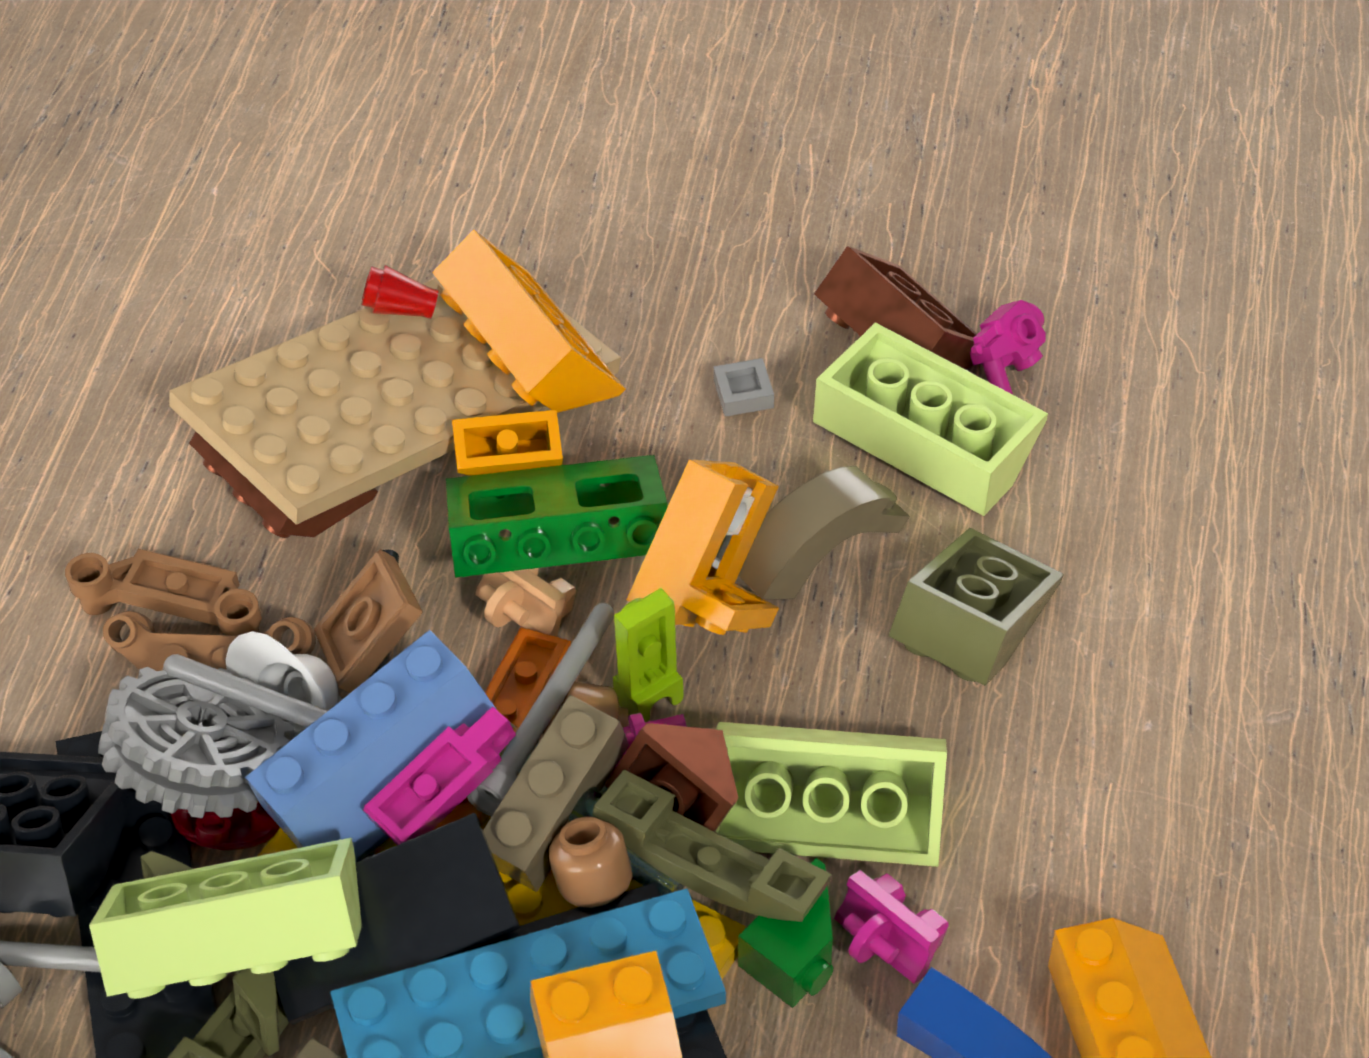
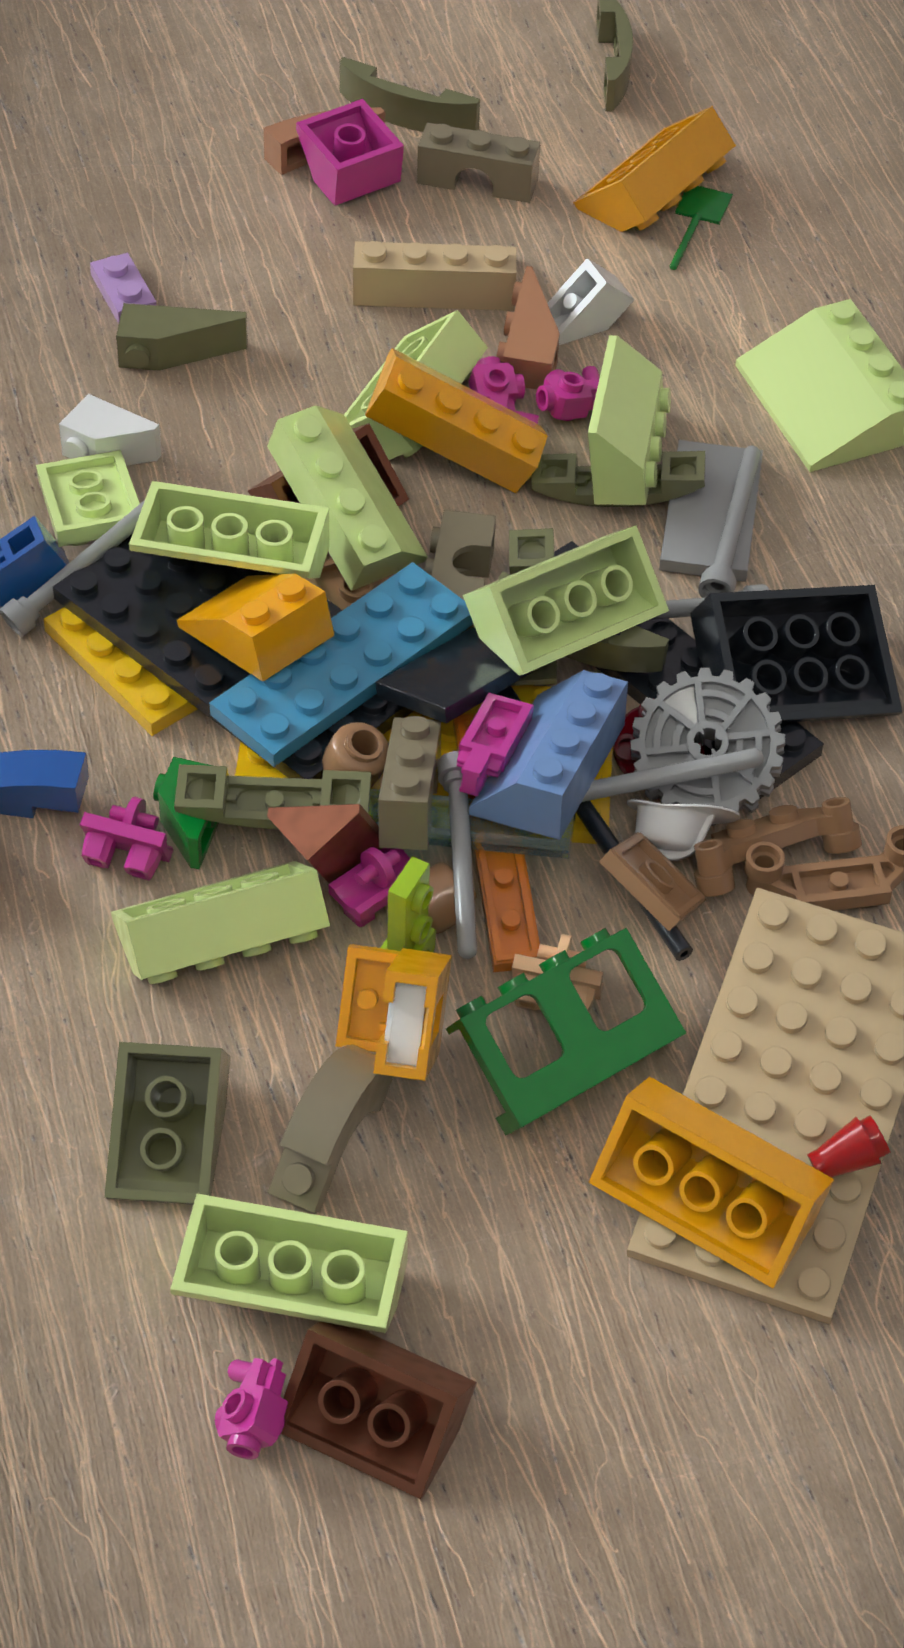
camera: 150 degrees right, 0 degrees up
(507, 442) = (664, 1056): light orange slope -> none
(743, 387) = (491, 1262): light grey plate -> none

